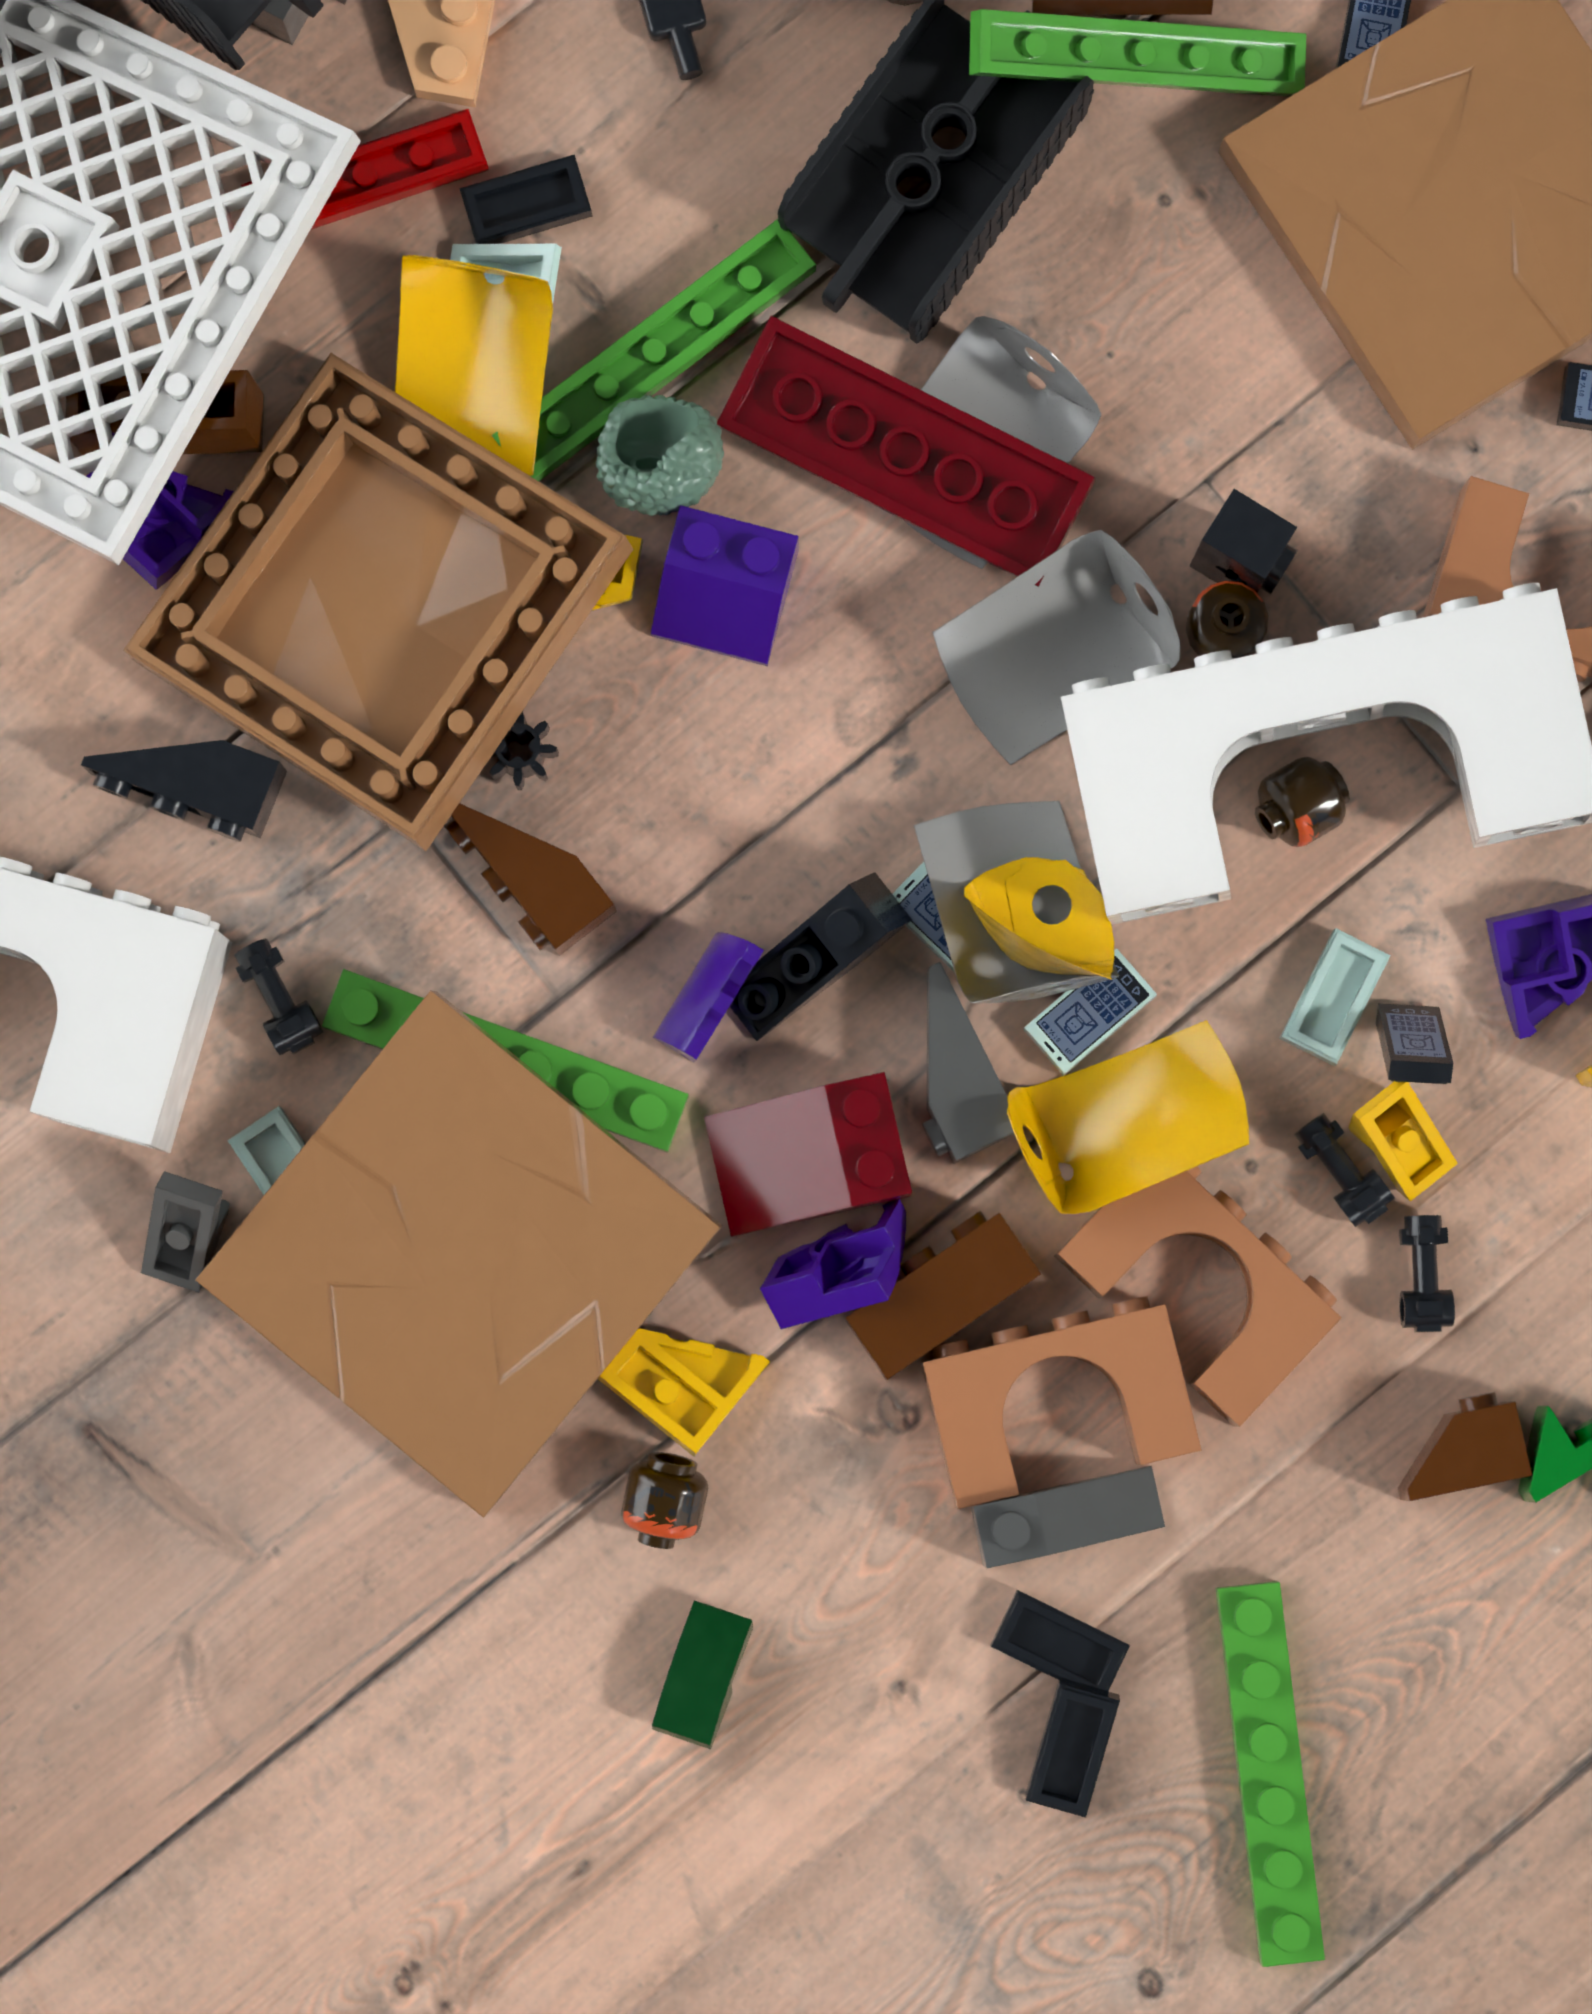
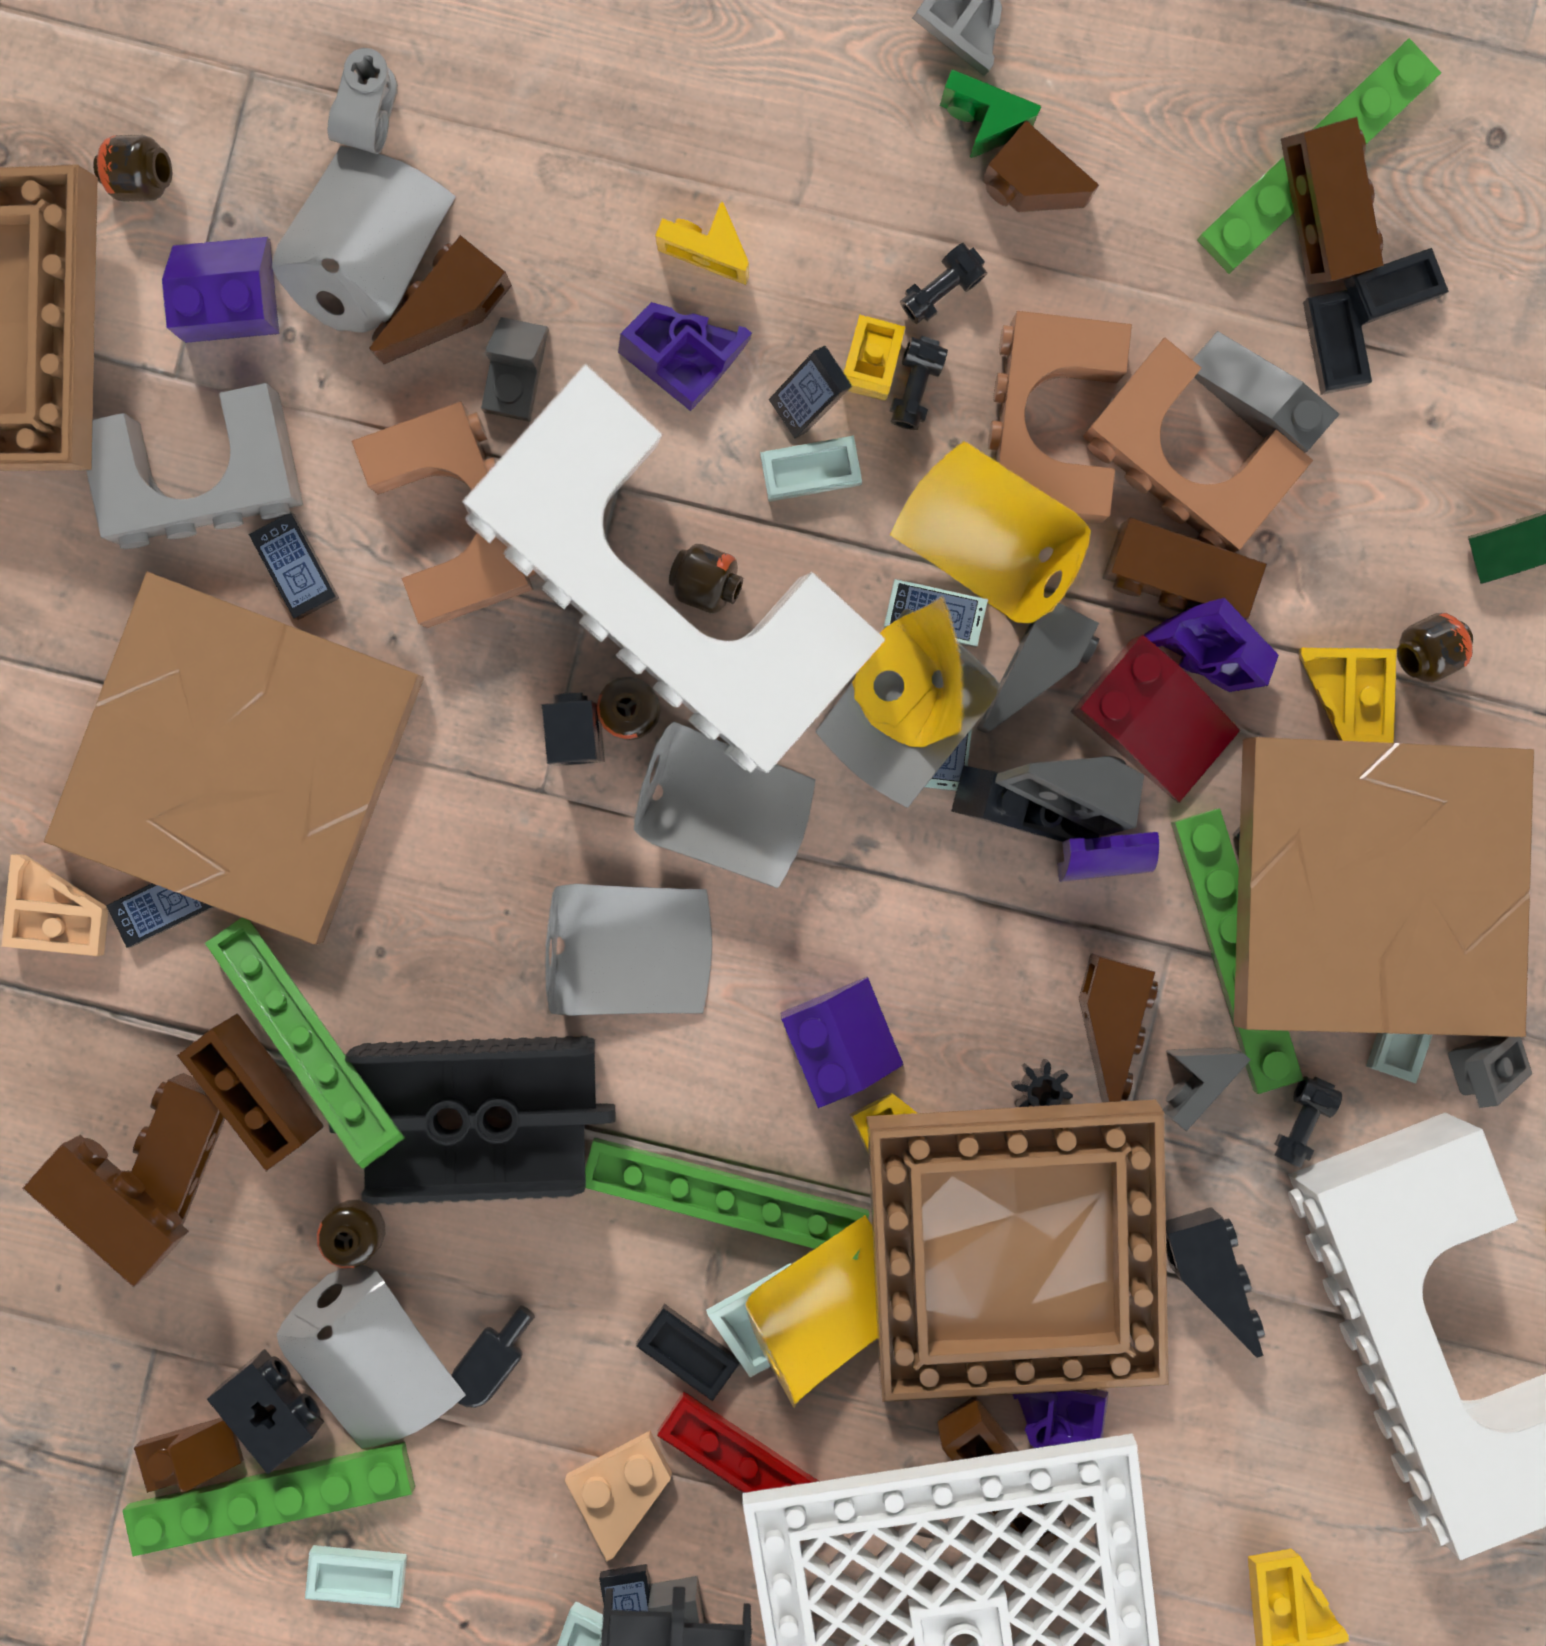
camera: 130 degrees left, 5 degrees up
(406, 935) = (1211, 1072): none -> dark grey slope
(659, 454) = (793, 1146): sand green hair -> none
(789, 1021) = (1089, 791): none -> dark grey slope
(904, 450) = (671, 994): dark red plate -> none
(1211, 1736) = (1333, 201): none -> reddish brown brick

